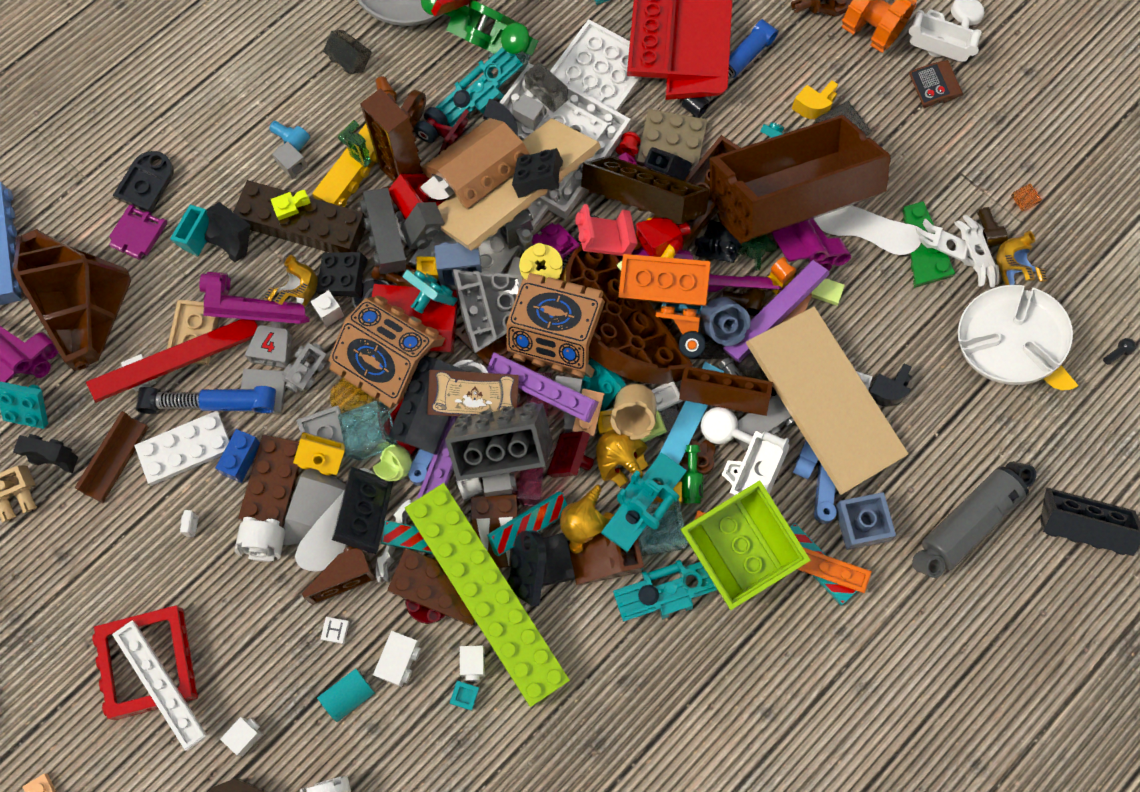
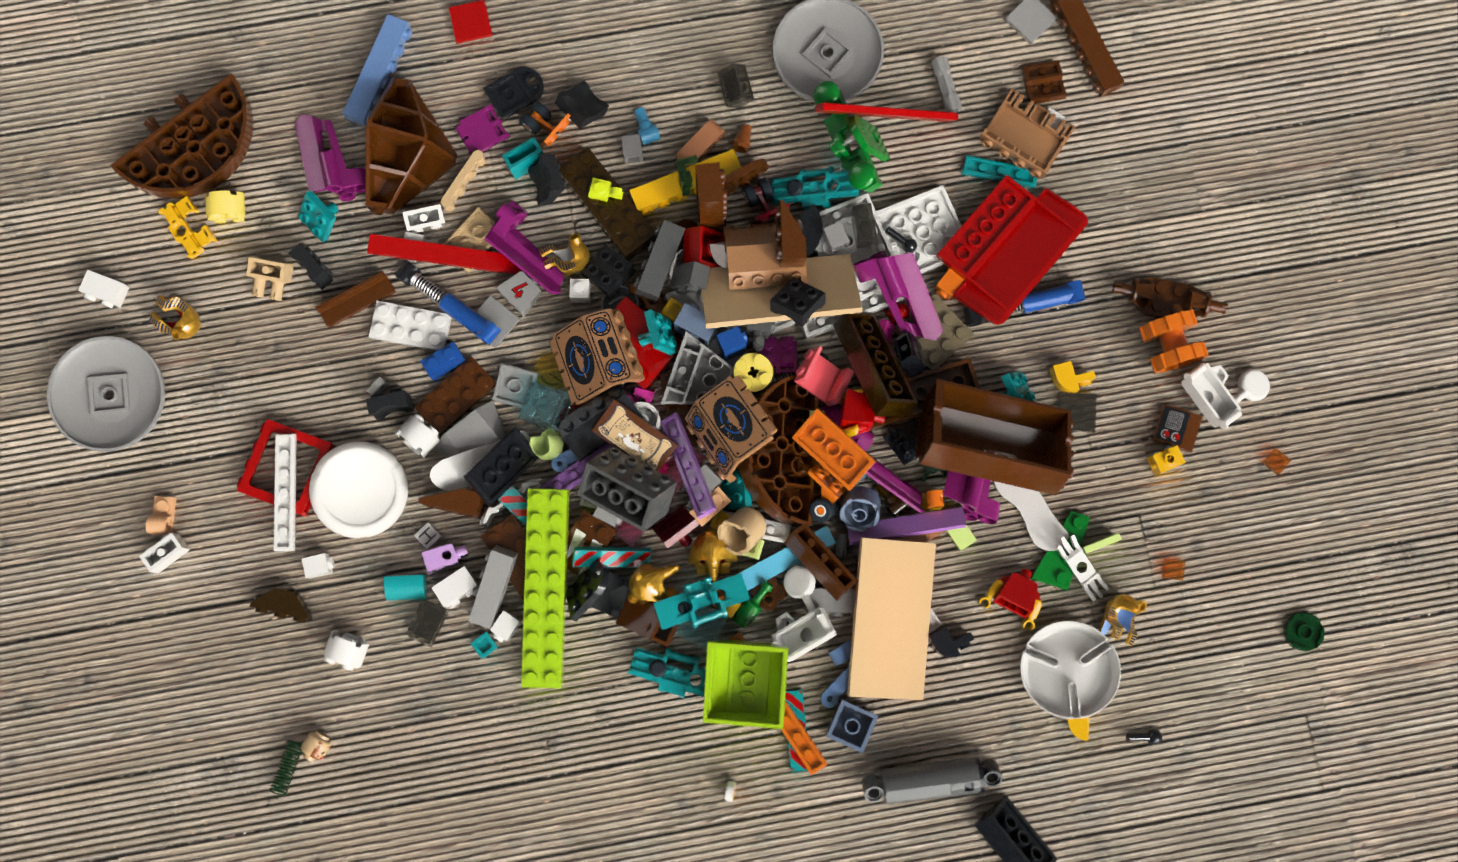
camera: 30 degrees right, 10 degrees up
(62, 149) = (470, 21): none -> red tile
(131, 339) = (424, 217): none -> white brick
(146, 290) = (466, 174): none -> tan plate
(184, 188) = (539, 119): none -> plate
(211, 528) = (383, 405): none -> black brick
(216, 151) = (581, 104): none -> black brick
(234, 633) = (358, 489): none -> white piece
(301, 372) = (528, 328): light grey brick -> none
(319, 454) = (500, 401): yellow brick -> none
(349, 111) = (702, 141): none -> nougat beam
(358, 646) = (434, 558): none -> lavender torso
(393, 713) = (428, 623): none -> clear smoke brick
(433, 630) = (492, 586): none -> light grey brick
(452, 357) = (647, 394): none -> dark pink tile
(491, 121) = (792, 242): none -> reddish brown slope
(502, 254) = (732, 343): none -> blue brick
(596, 82) = (908, 244): none -> black bar
(610, 105) = (898, 278): none -> magenta panel
(655, 93) = (948, 284): none -> orange brick
(801, 664) = (730, 791): none -> white tile
(917, 305) = (1017, 595): none -> red torso
(947, 113) = (1159, 462): none -> yellow head
(952, 212) = (1101, 543): none -> yellowish green tile
(983, 263) = (1096, 599): white piece -> none
(993, 233) = (1121, 580): dark brown pin -> none
(1035, 58) = (1276, 461): none -> clear orange tile

